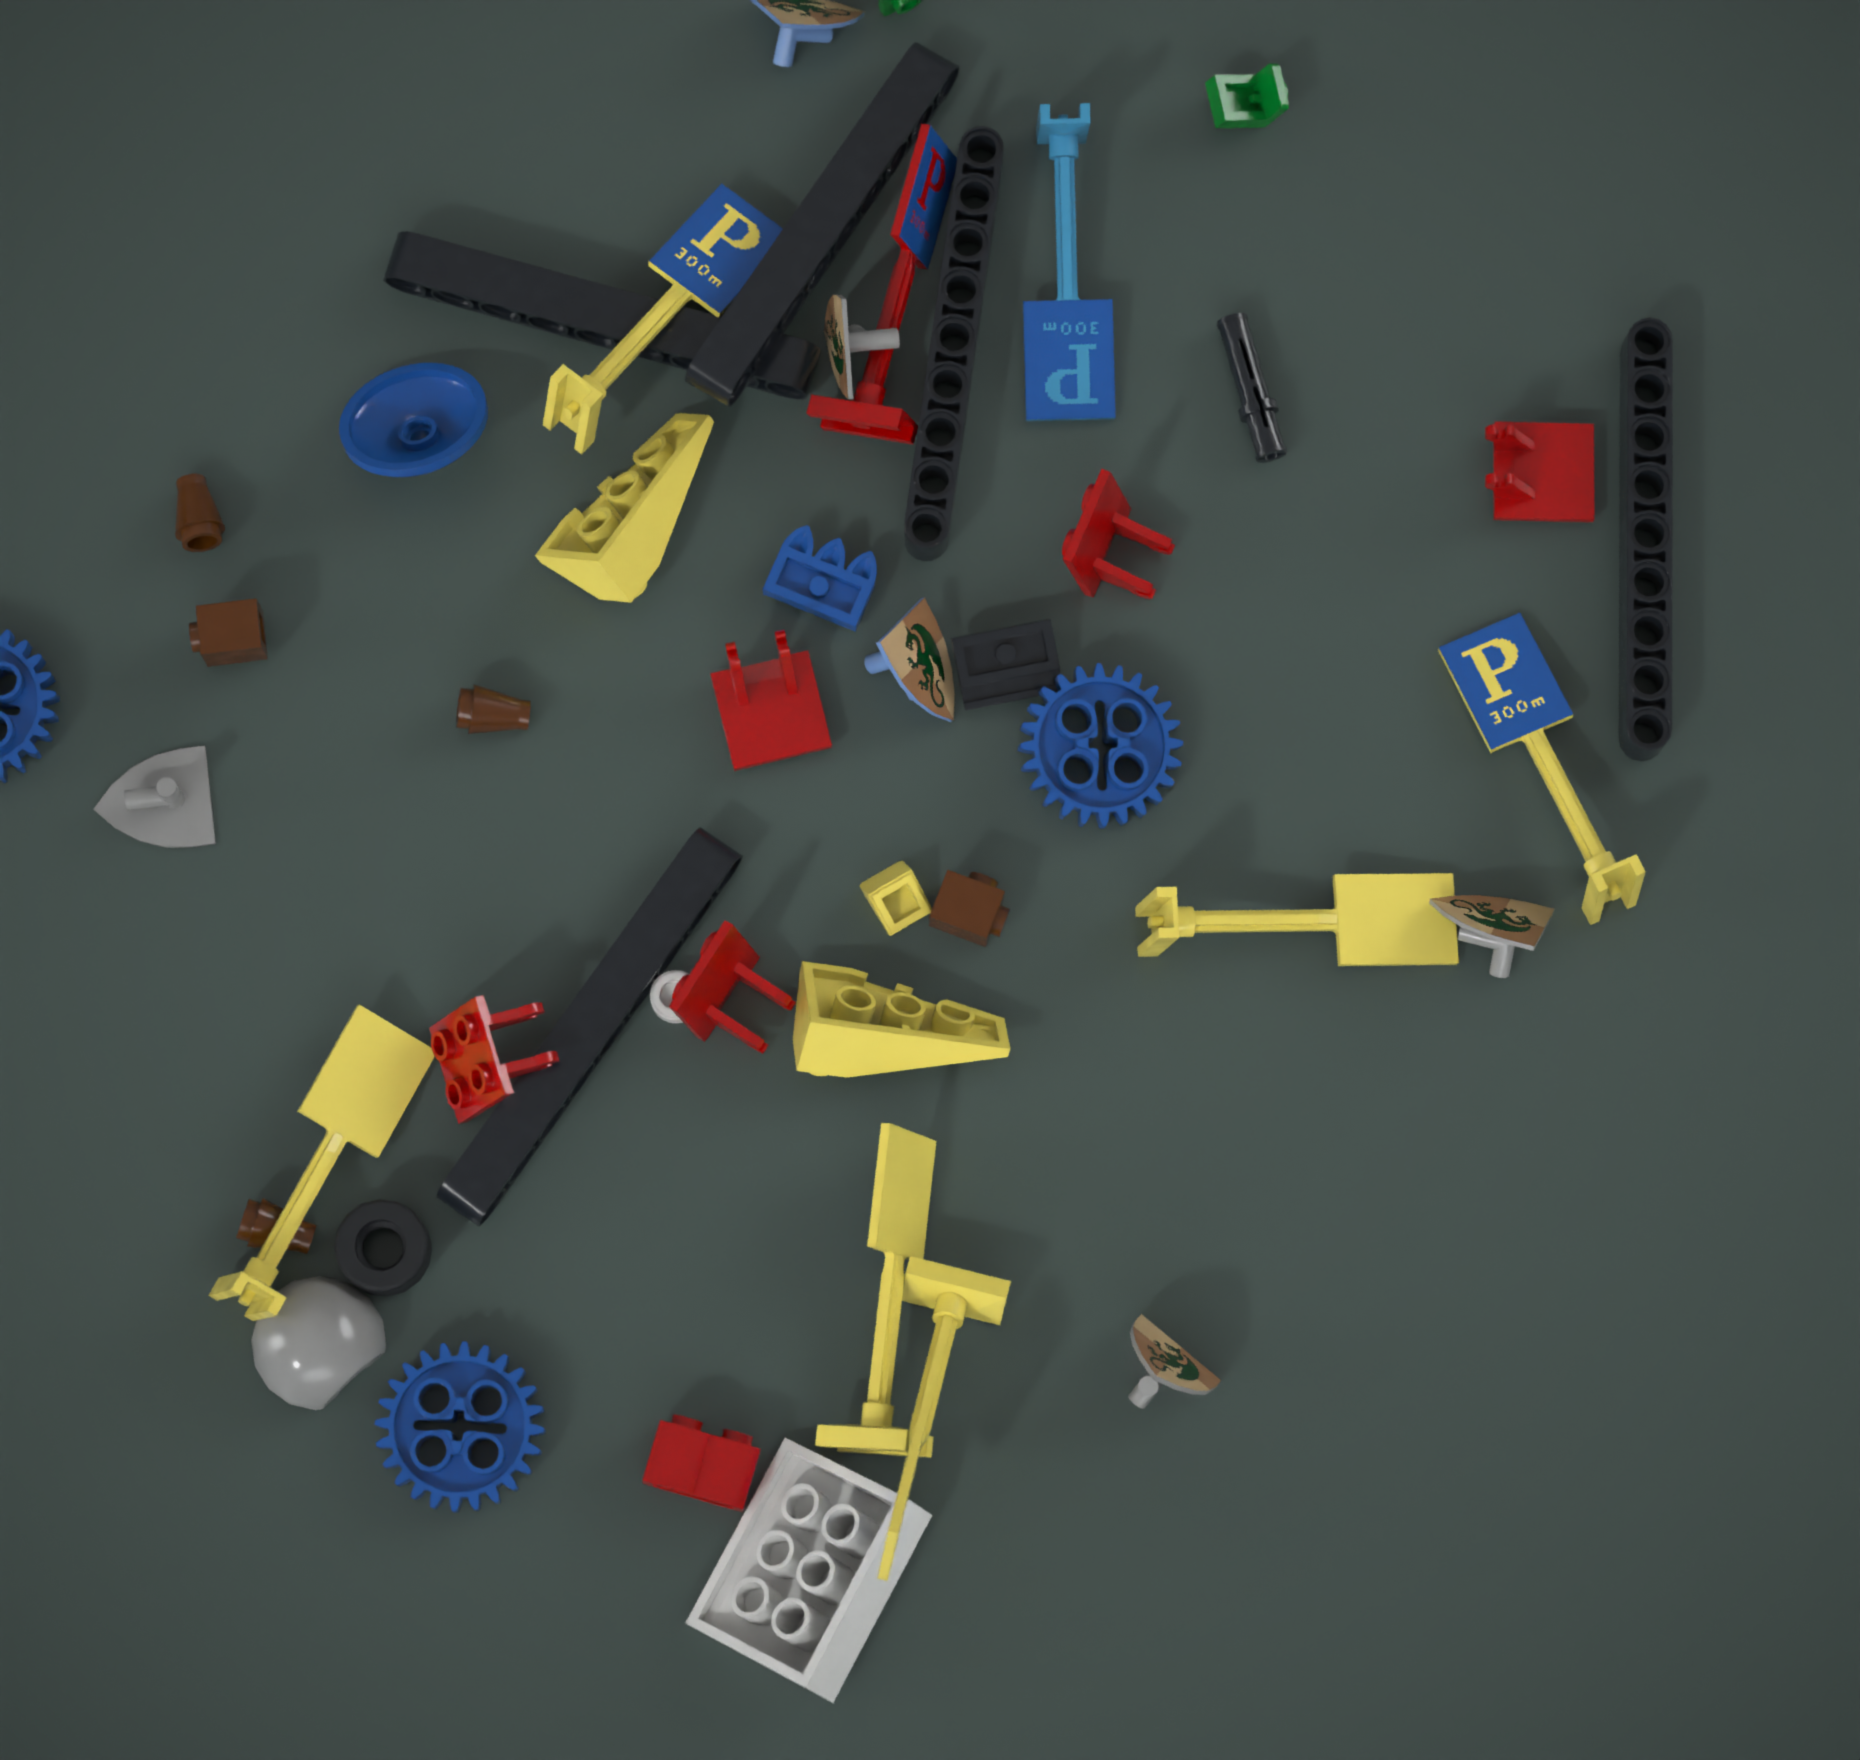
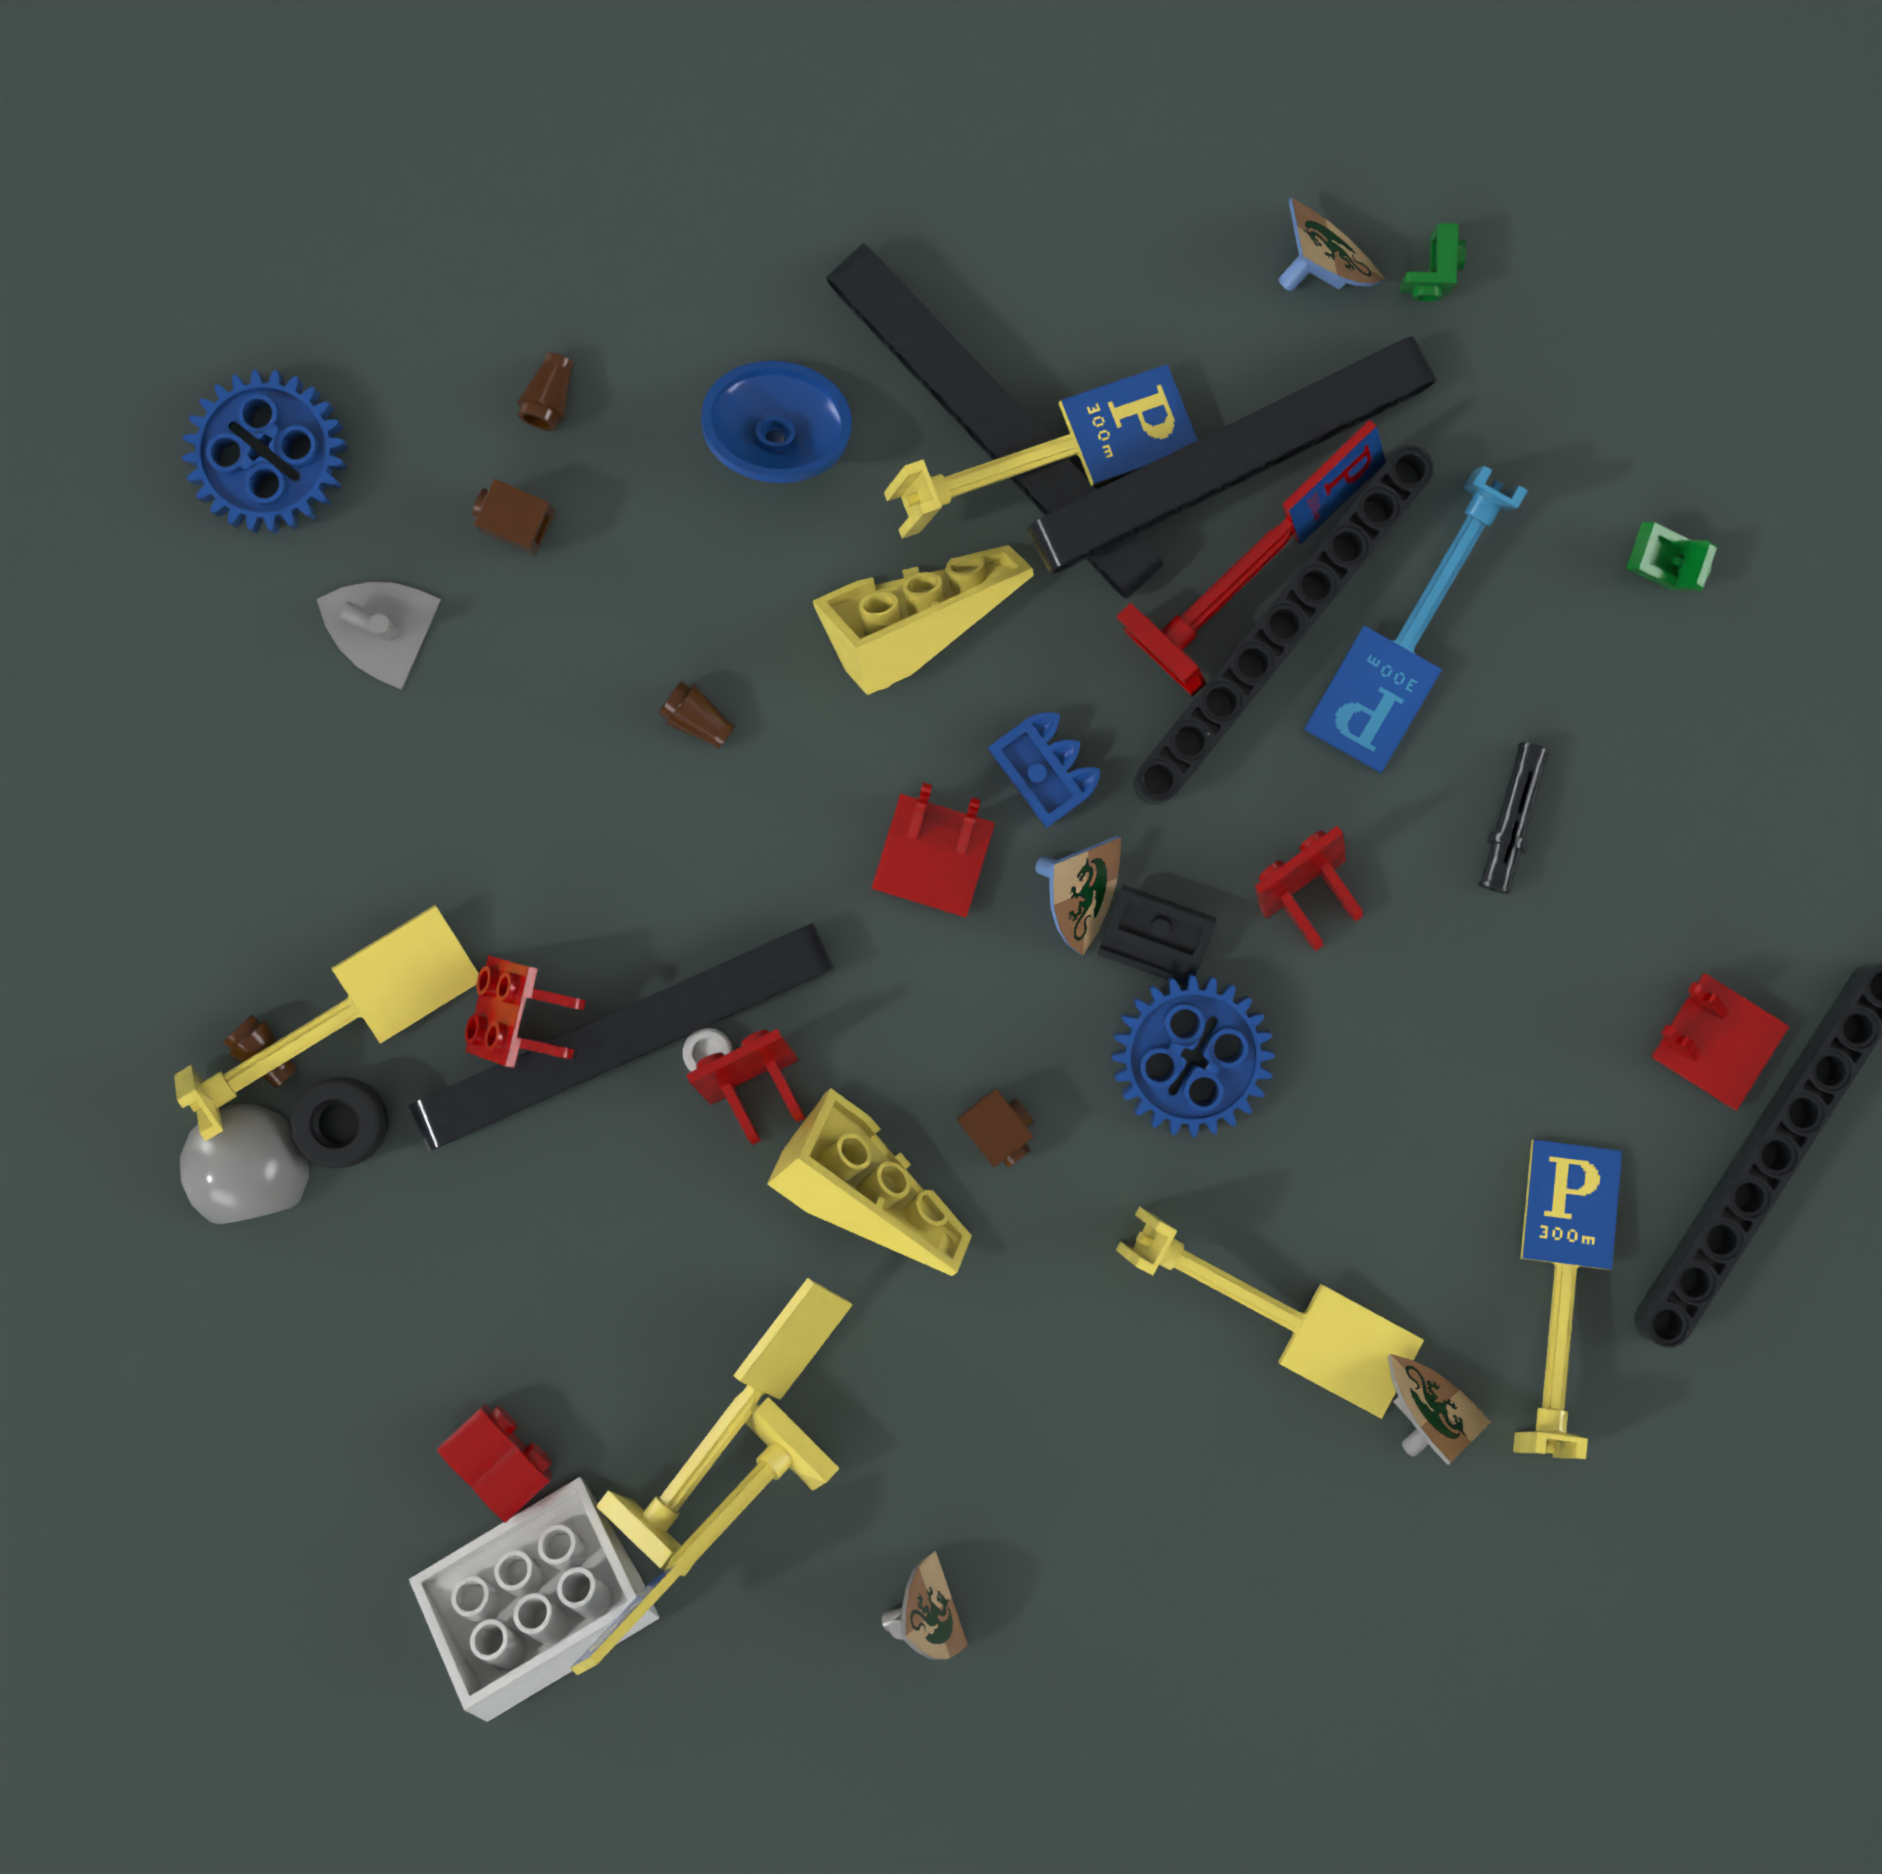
camera: 35 degrees right, 10 degrees up
(456, 1474) = (293, 1349): blue gear -> none
(844, 340) = (1193, 574): shield -> none
(896, 897) = (942, 1078): light yellow slope -> none

